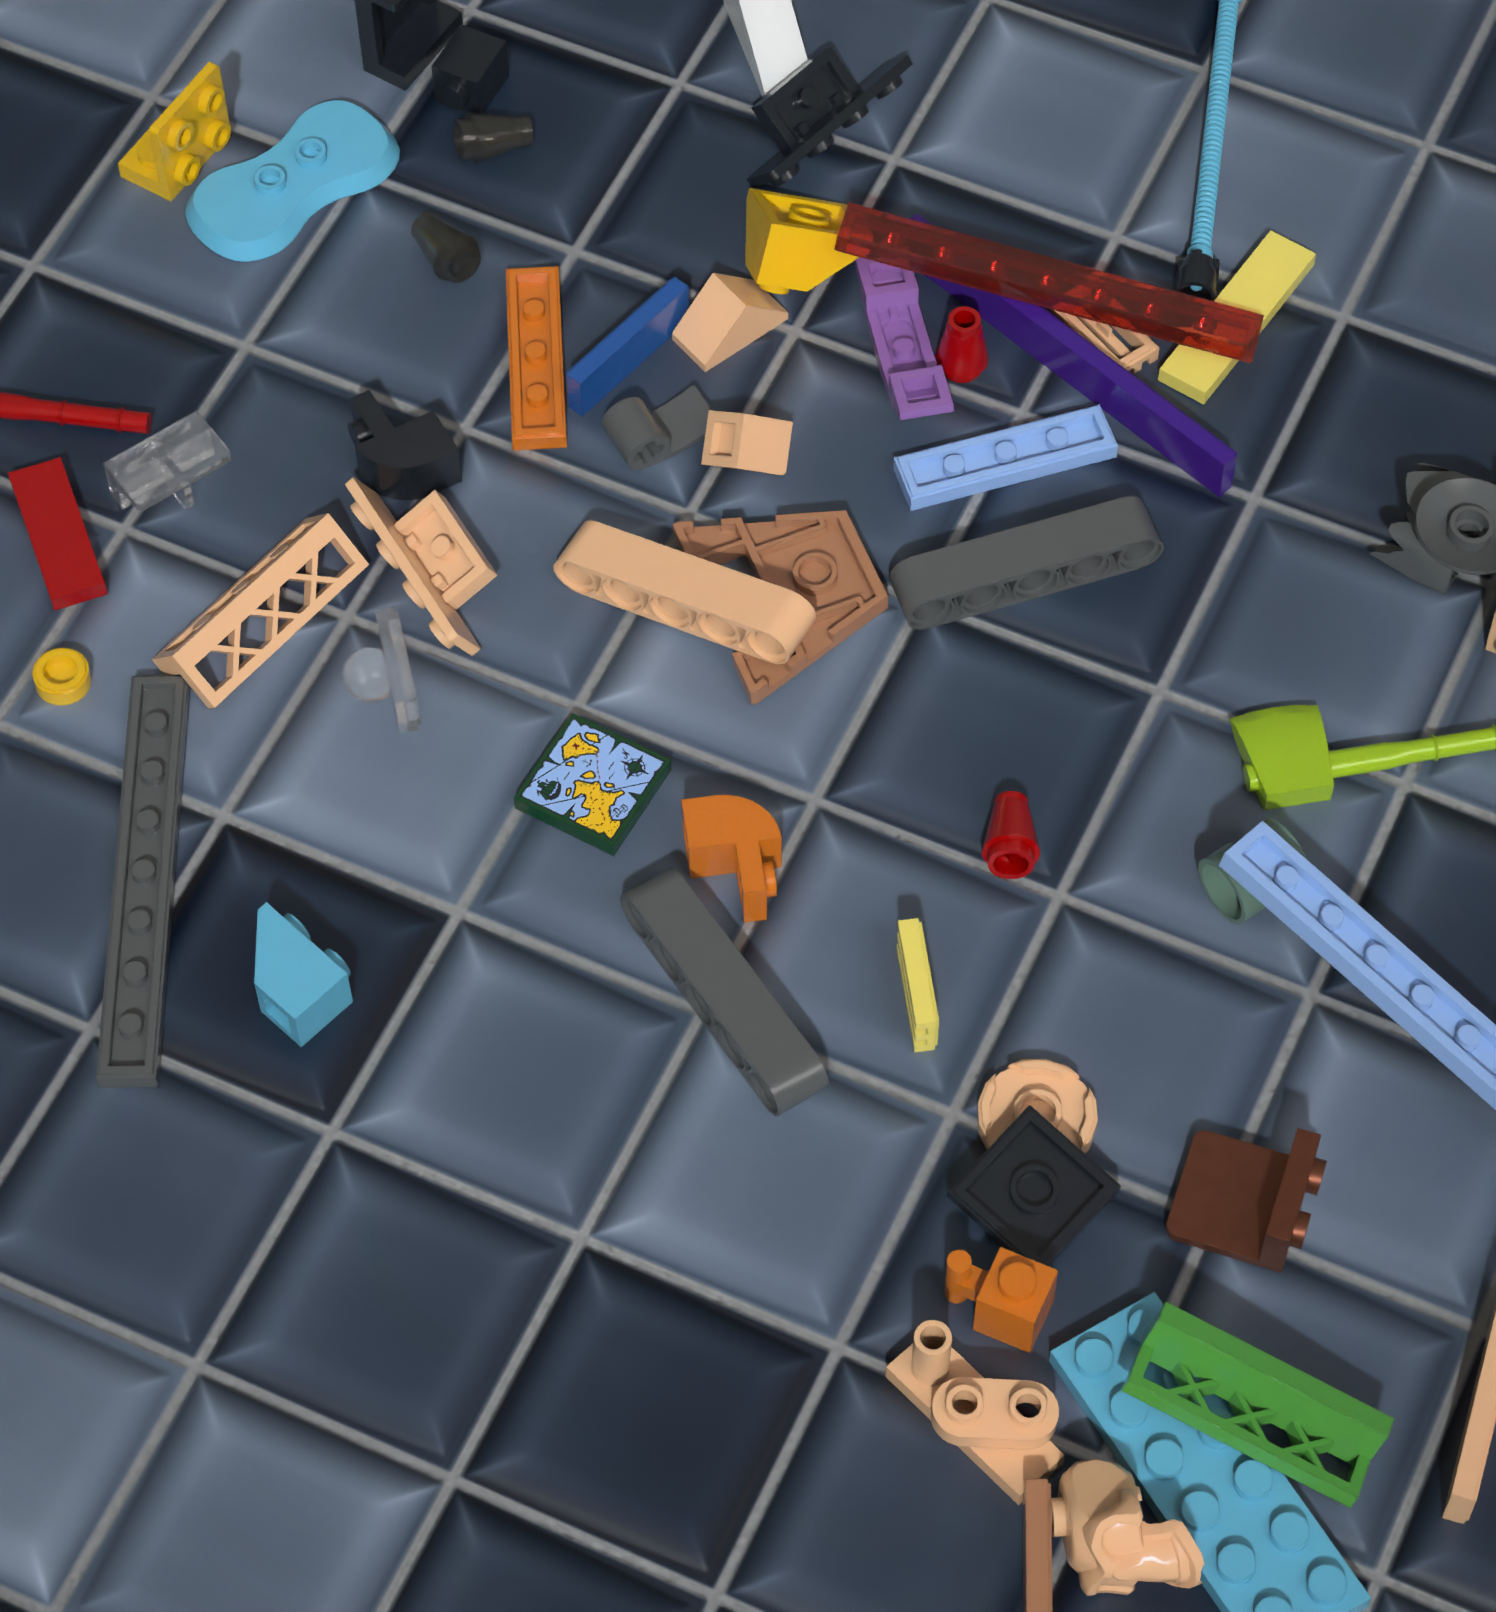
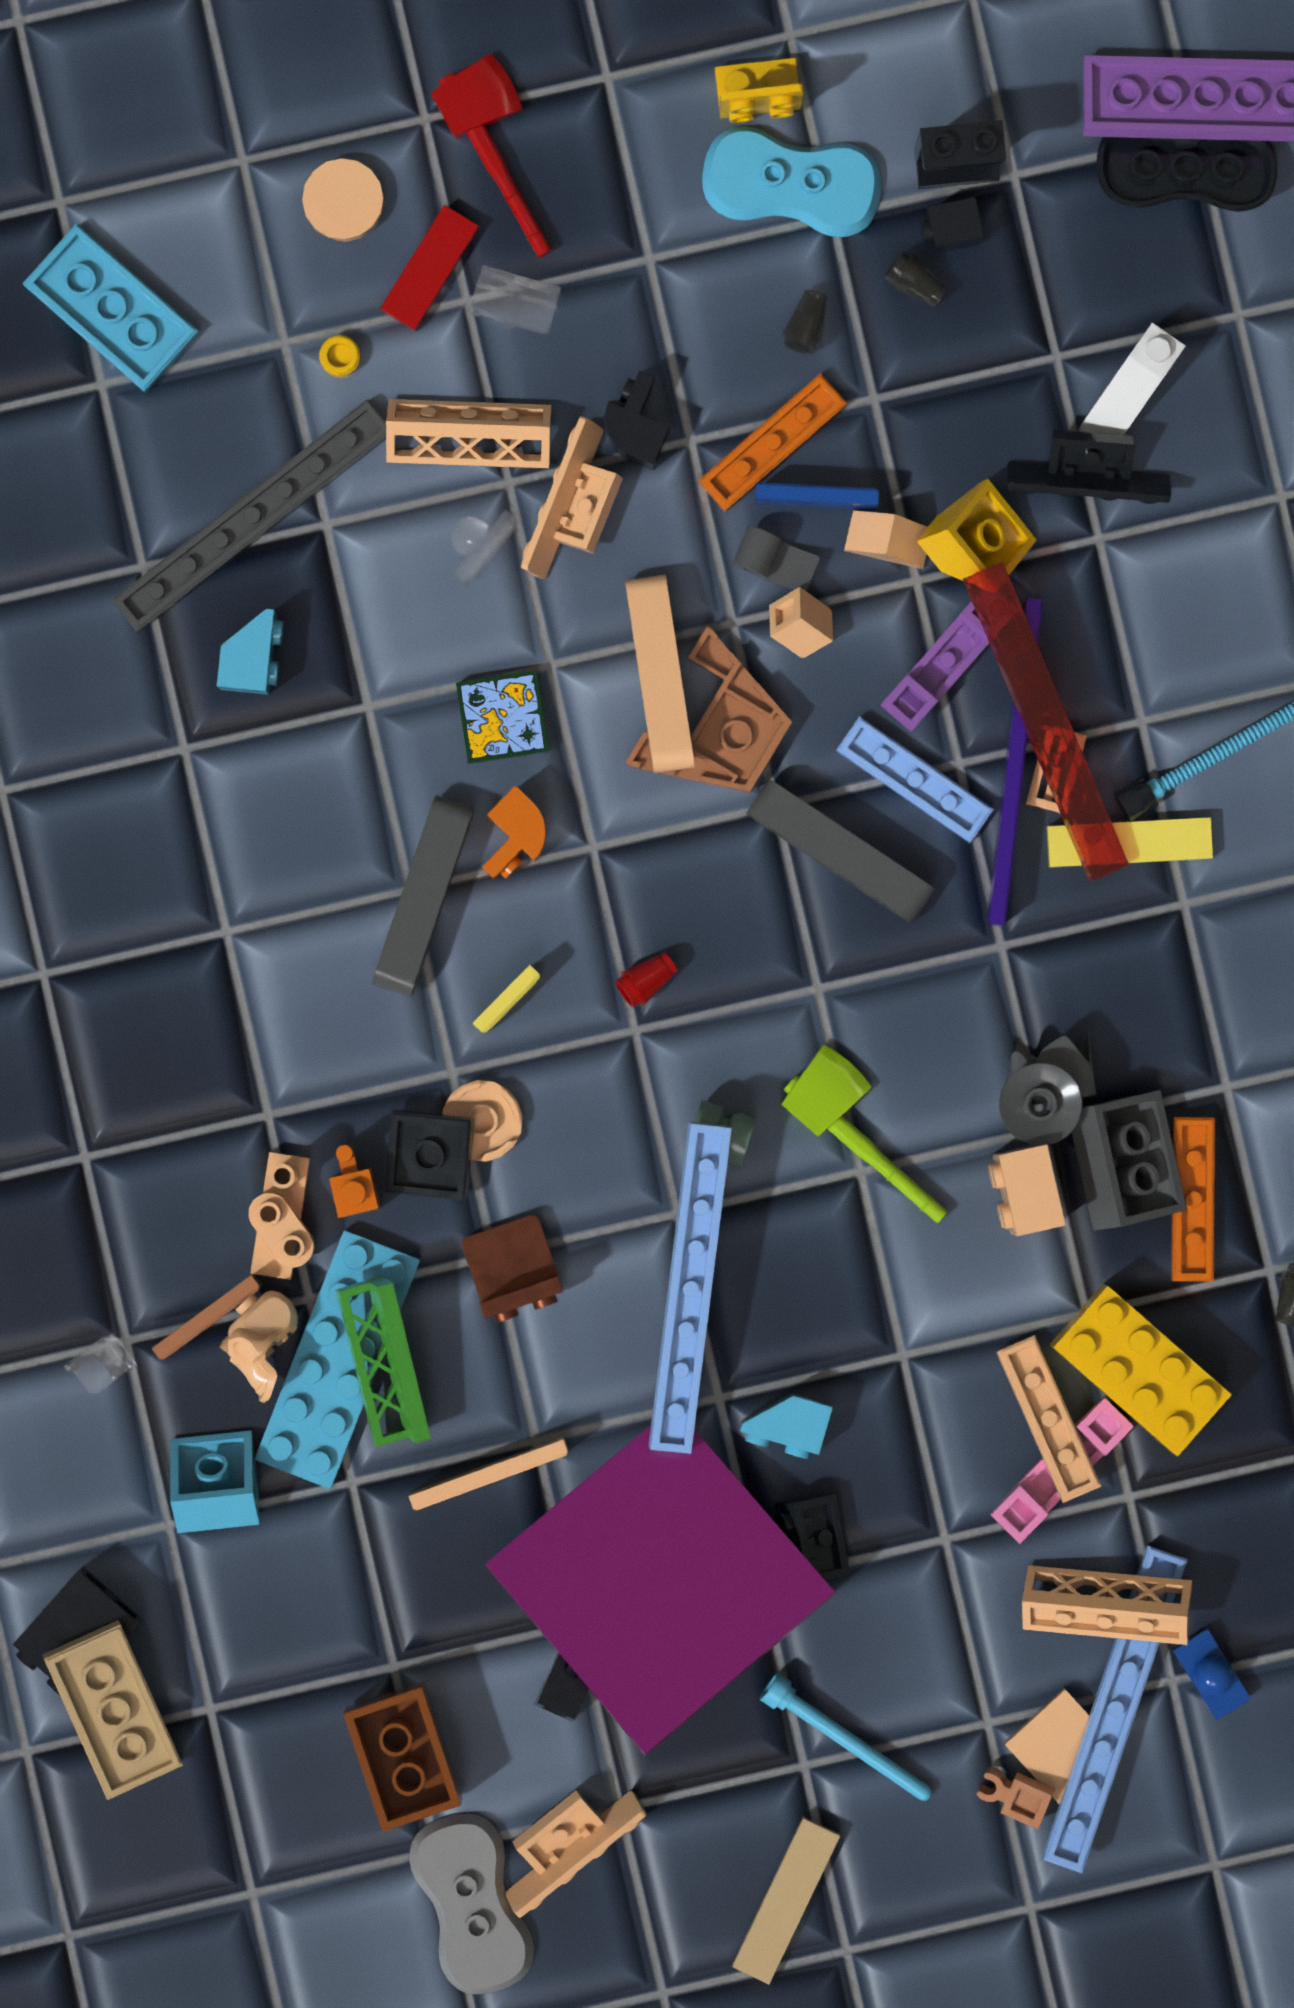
camera: 50 degrees right, 30 degrees up
(963, 346) = (964, 709): red cone -> none

